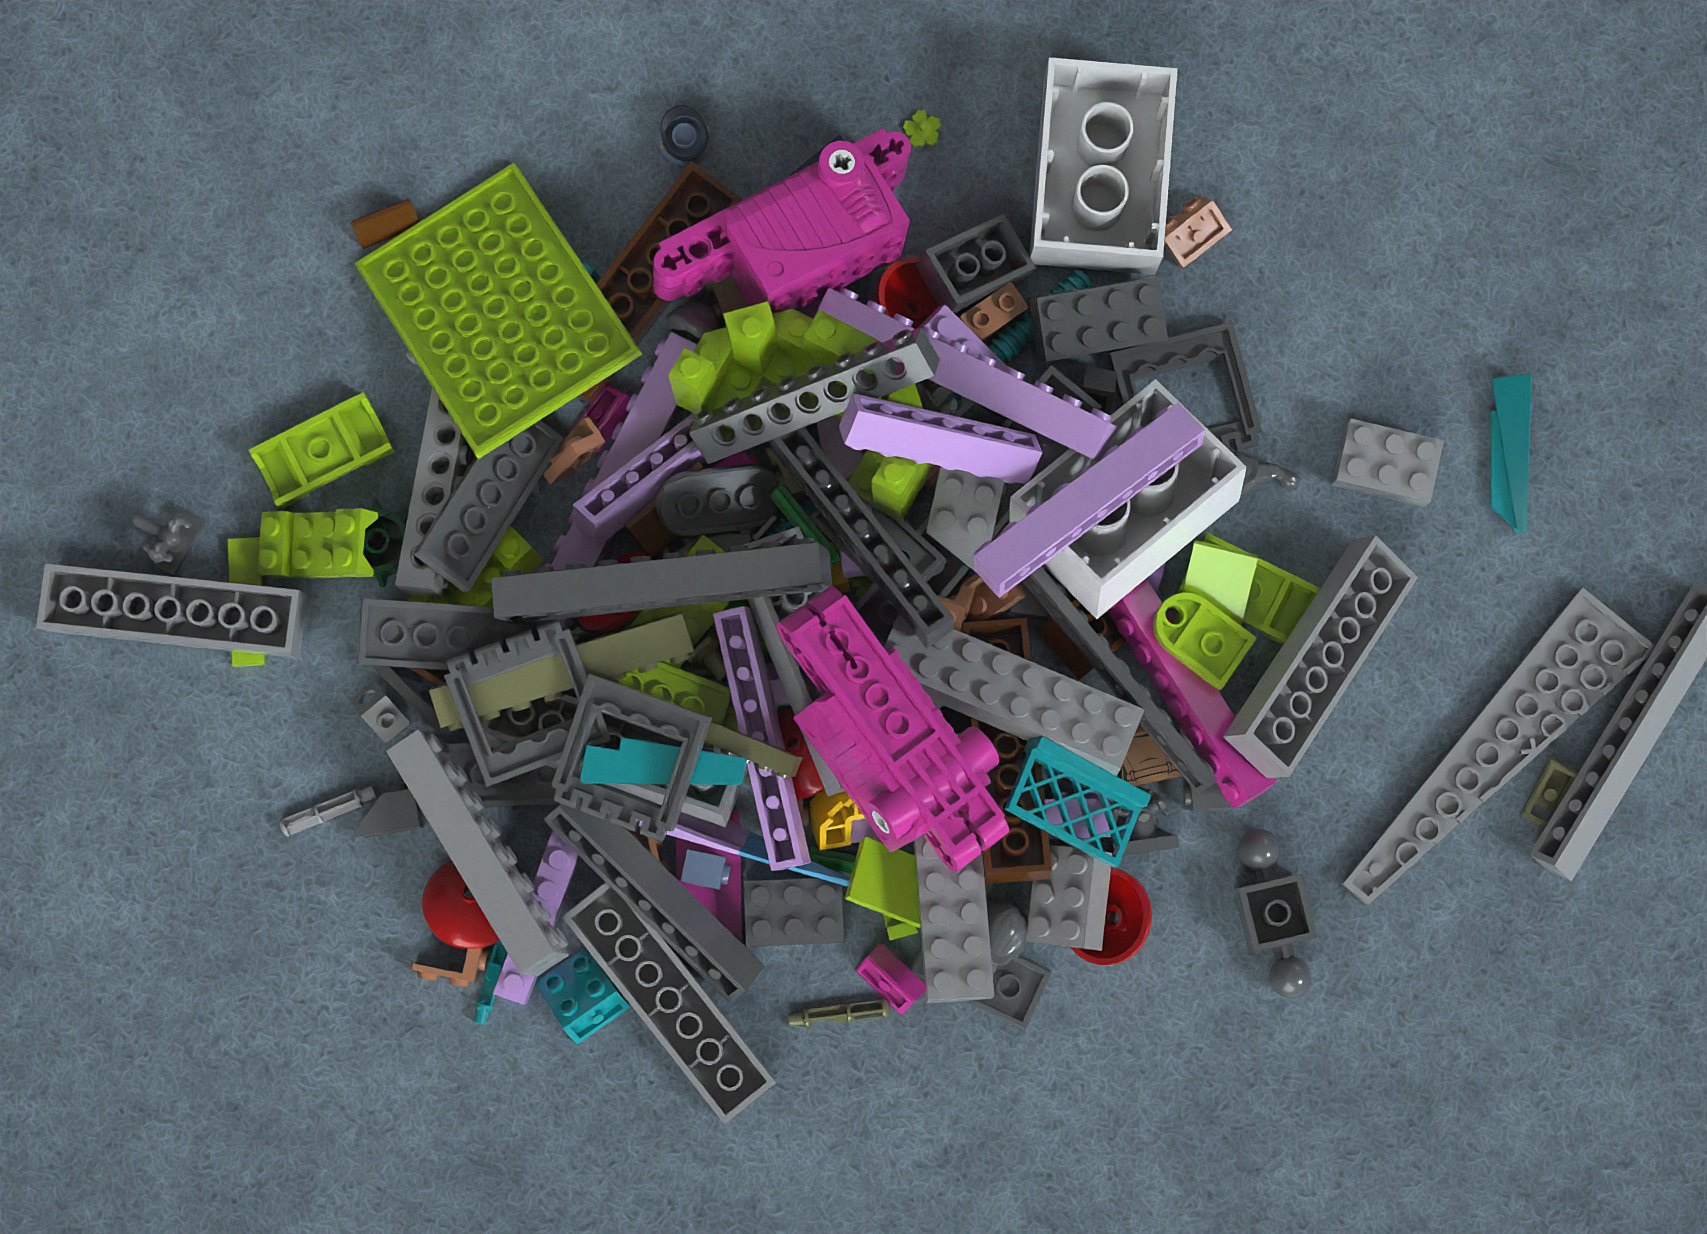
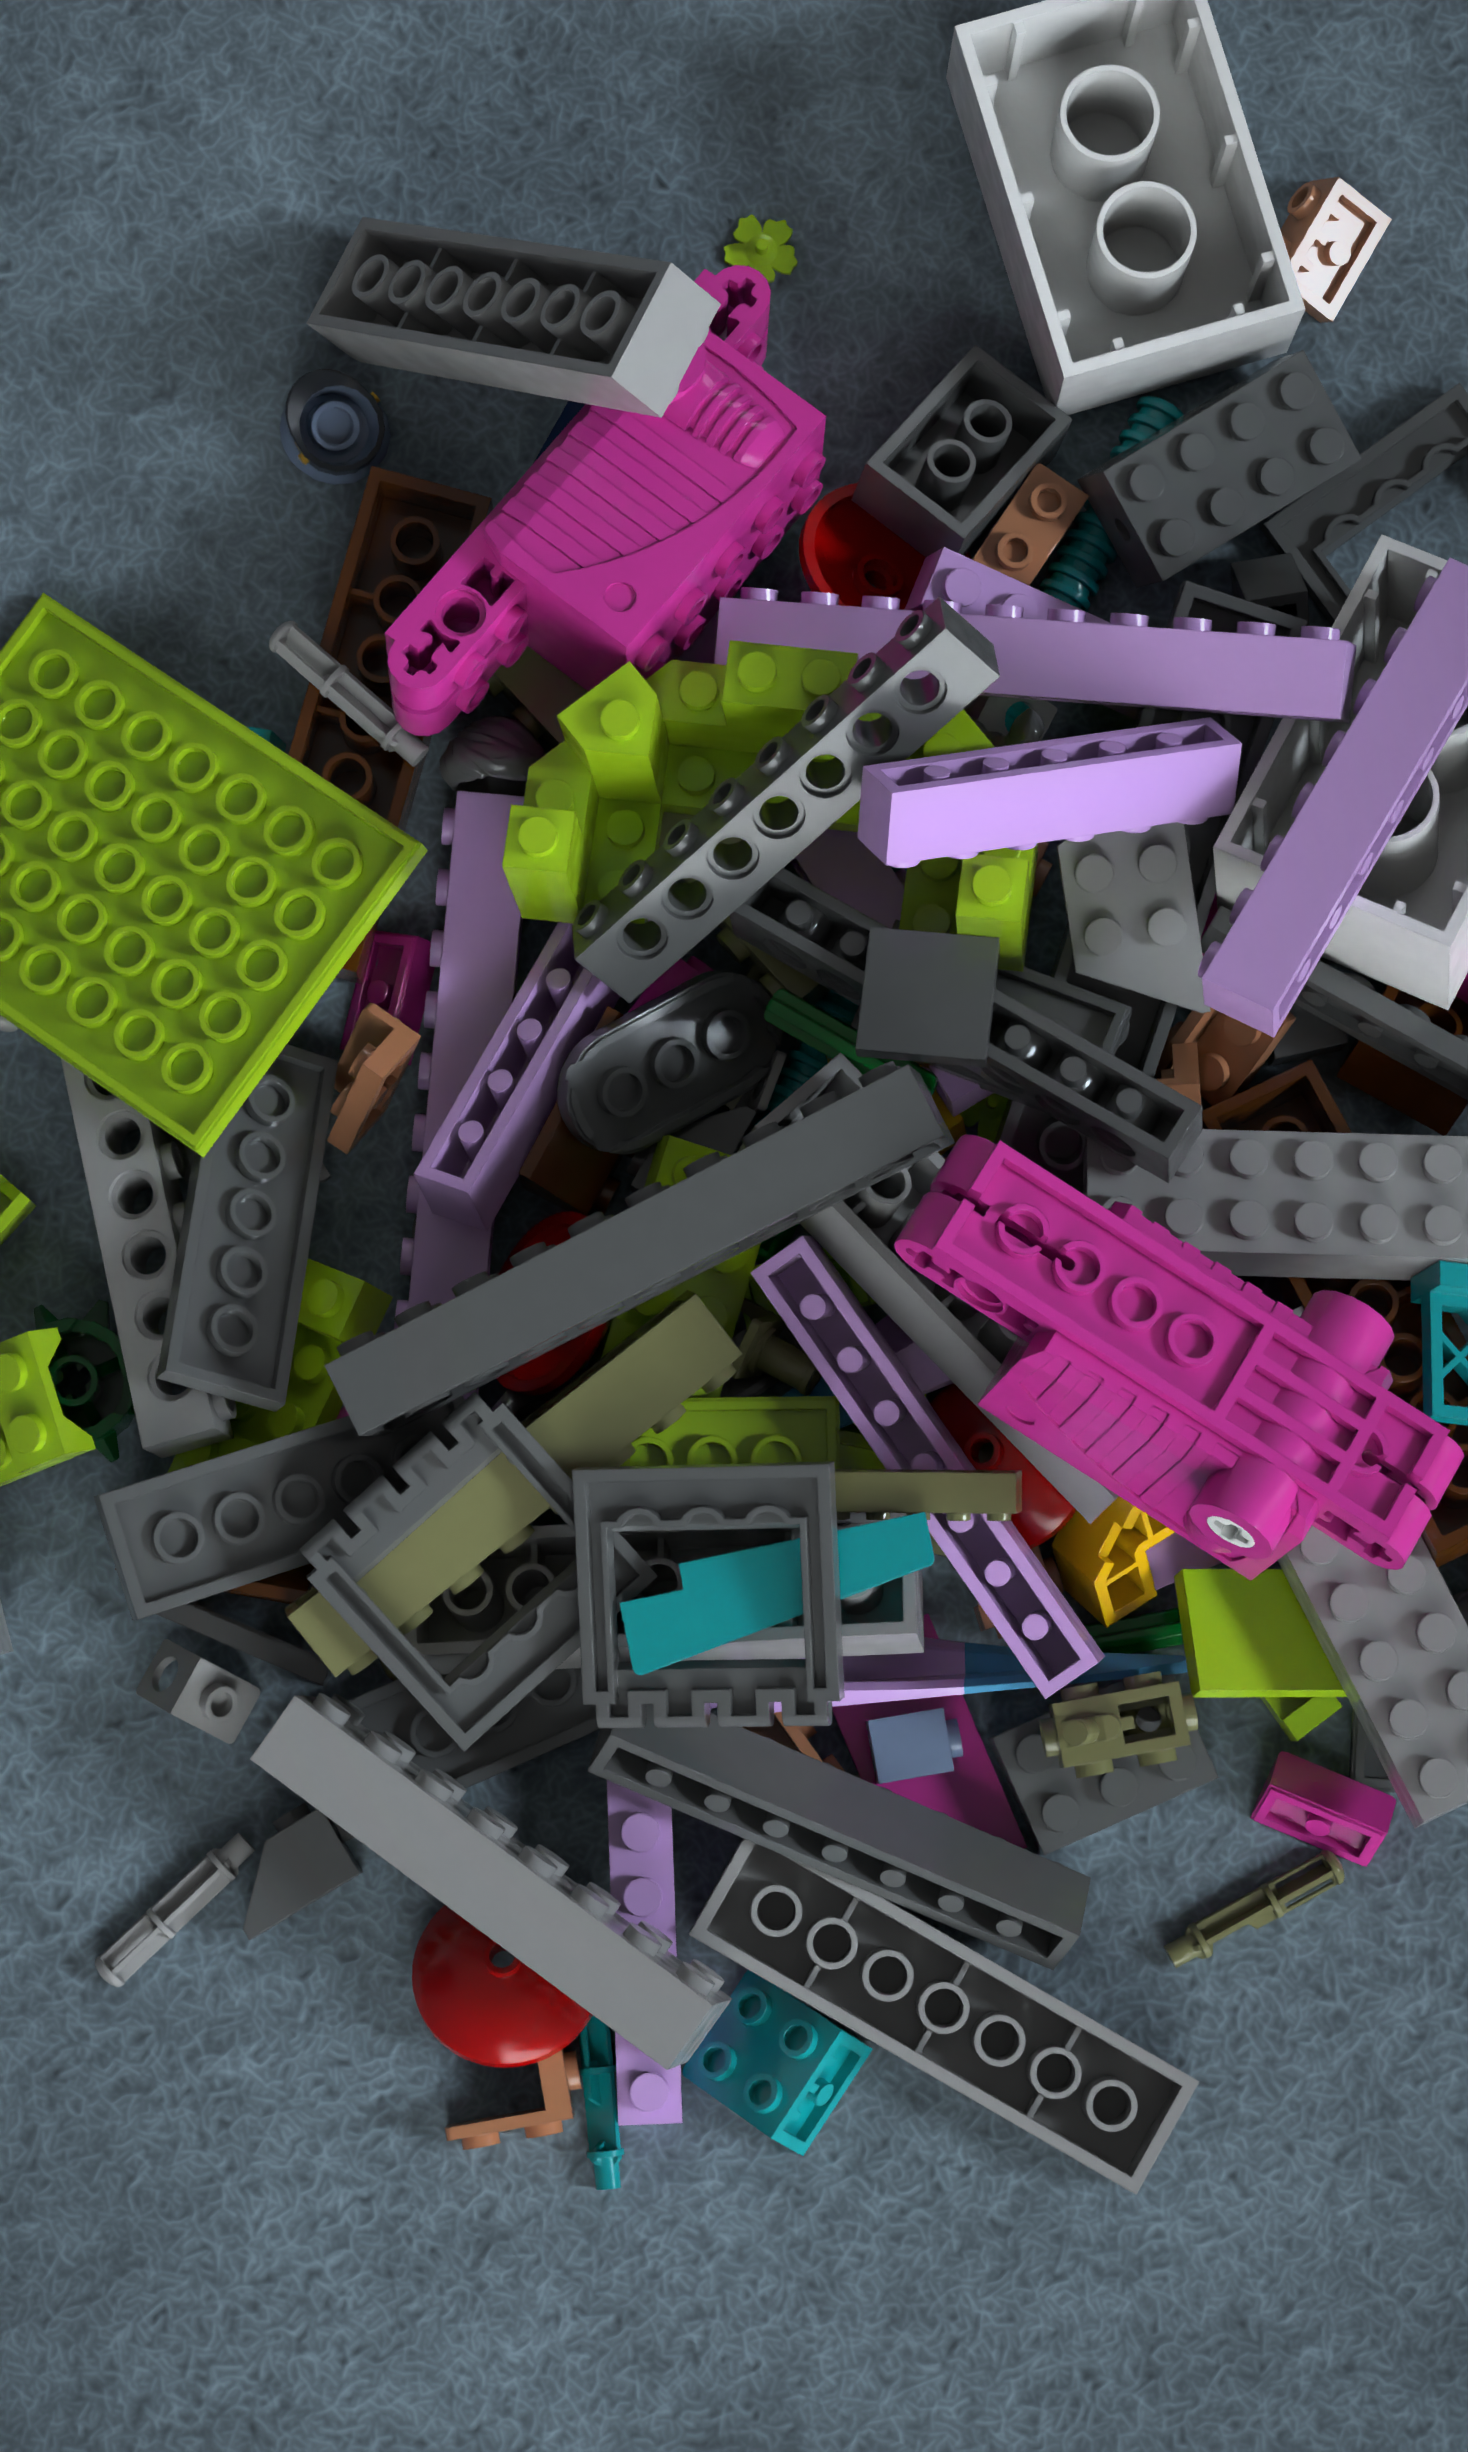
camera: 25 degrees left, 0 degrees up
(635, 264) = (345, 691): none -> light grey piece
(782, 115) = (515, 314): none -> light grey brick
(792, 895) = (1095, 1728): none -> olive brick
(845, 515) = (927, 997): none -> dark grey tile

